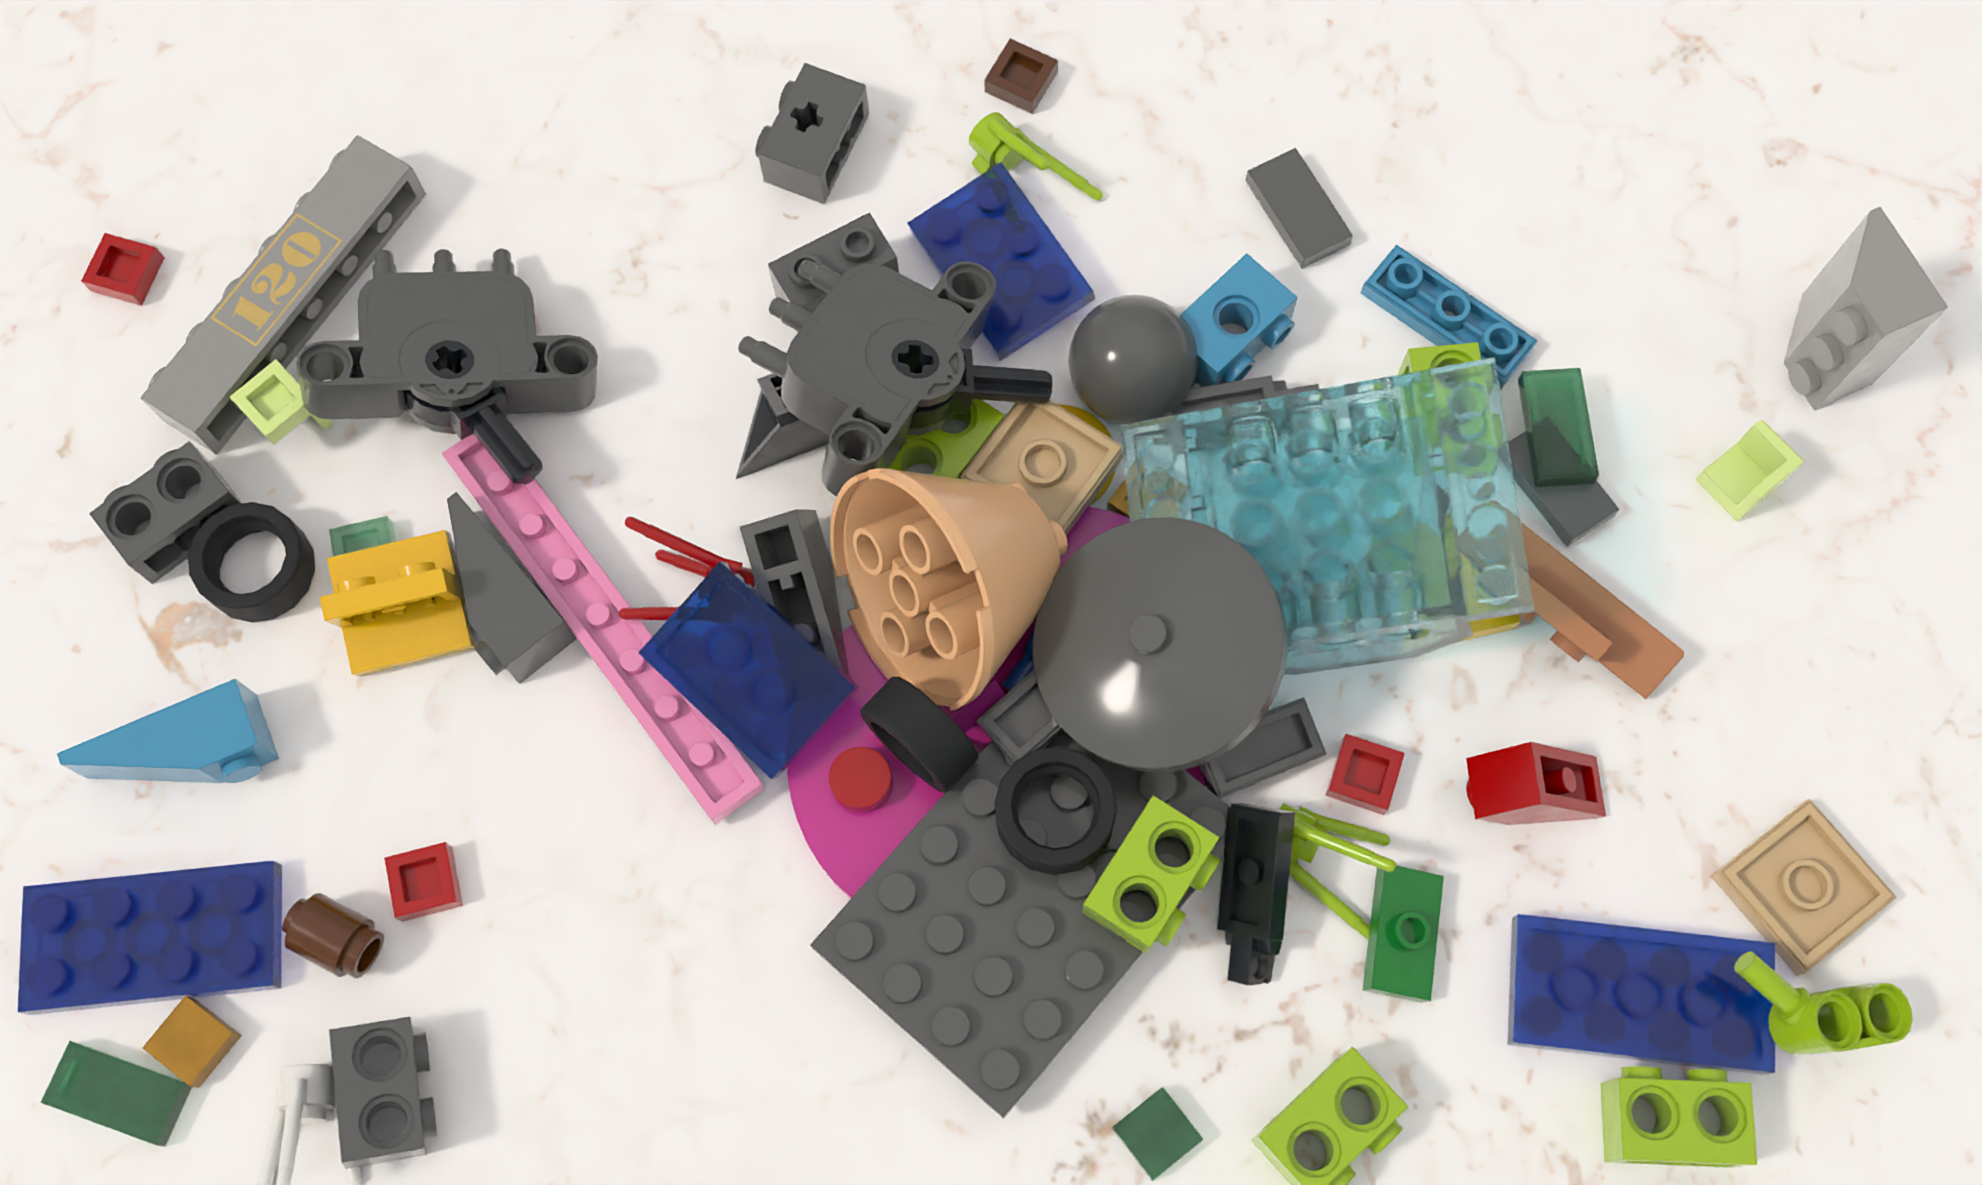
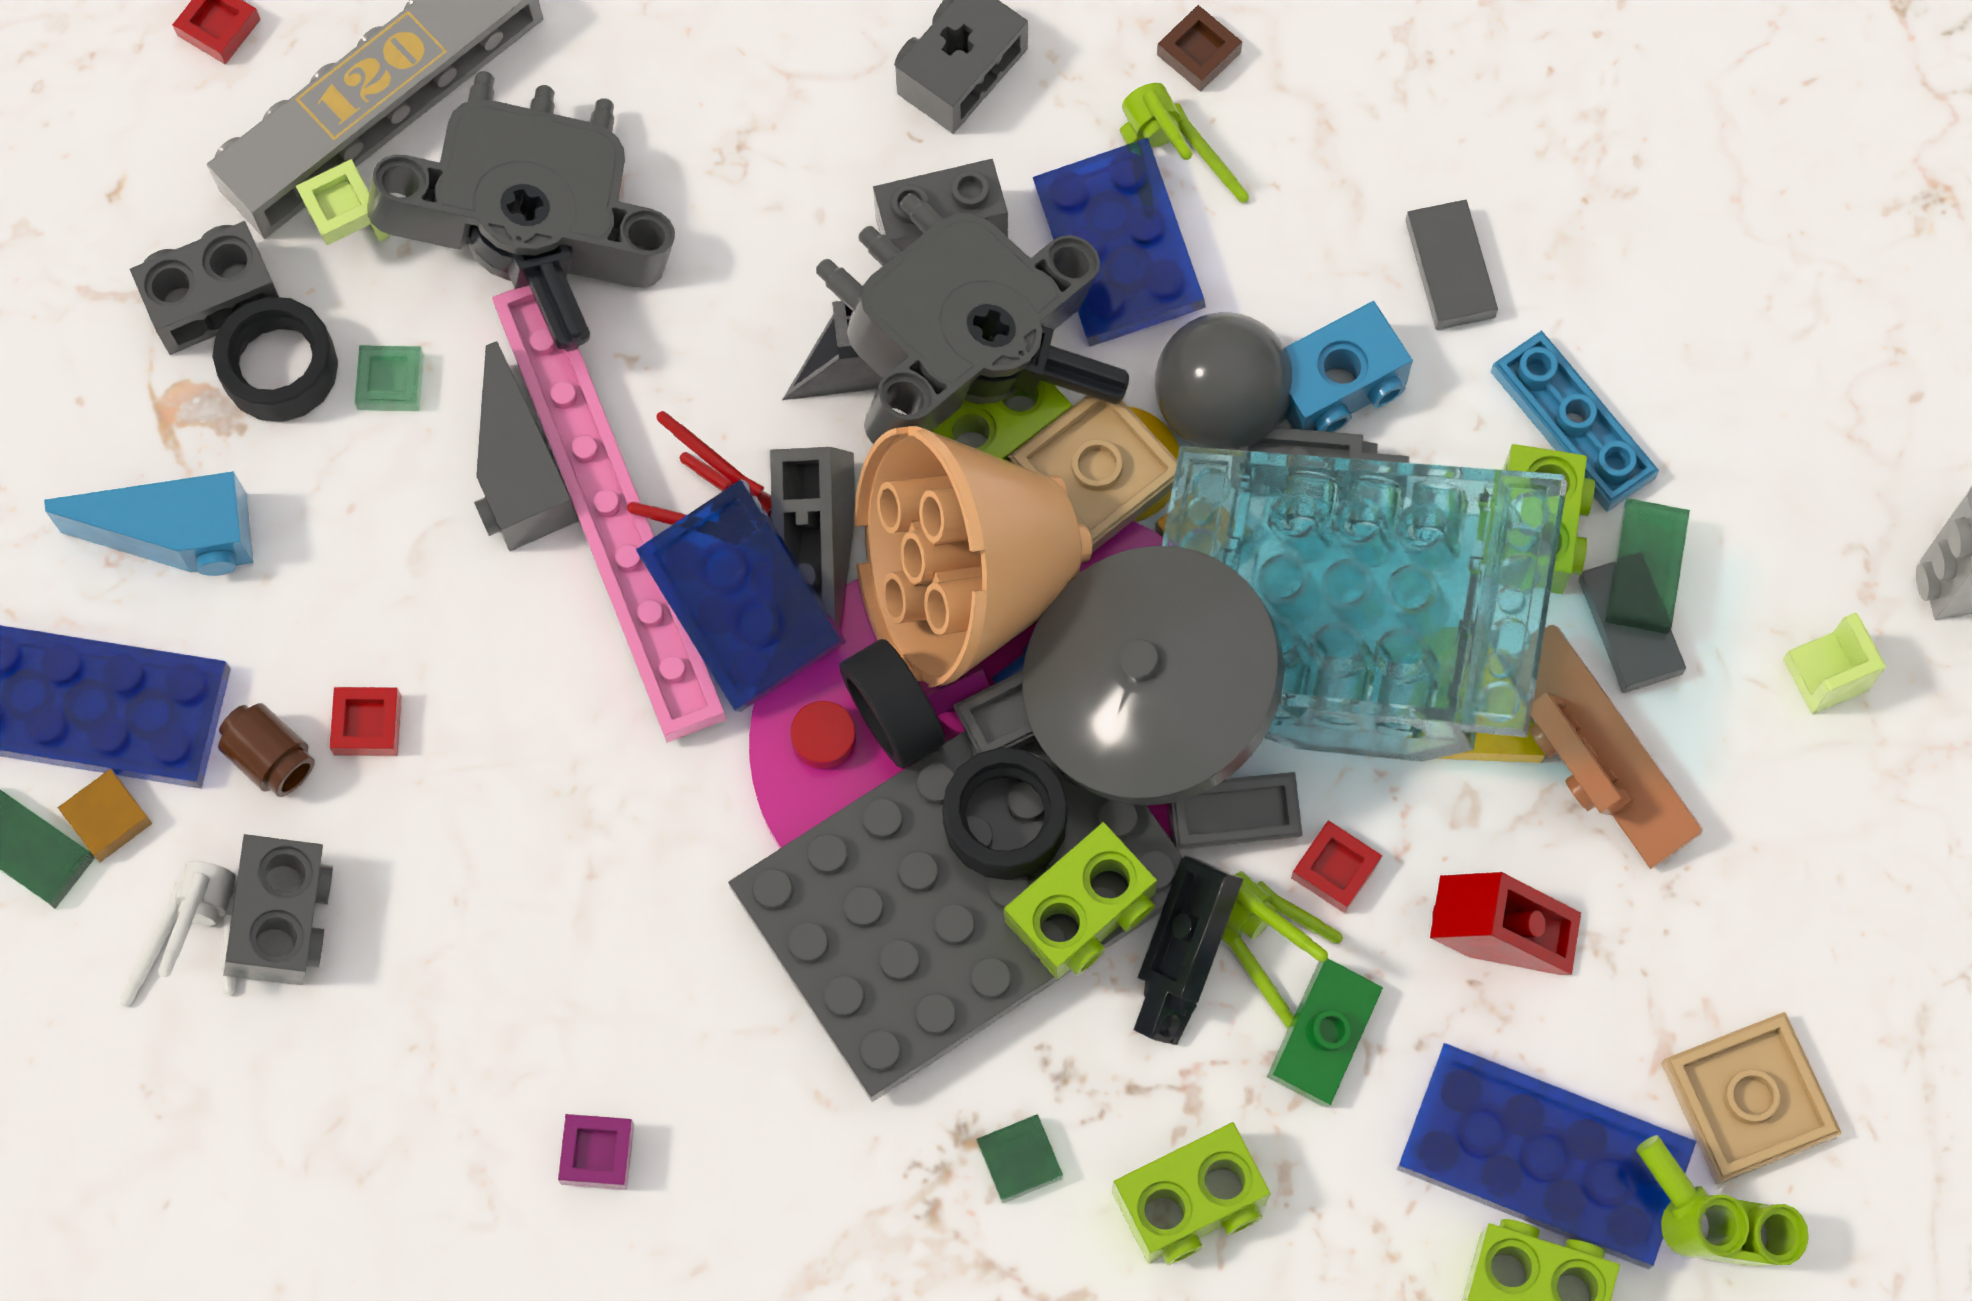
camera: 15 degrees right, 0 degrees up
(398, 603) = (411, 438): yellow bracket -> none

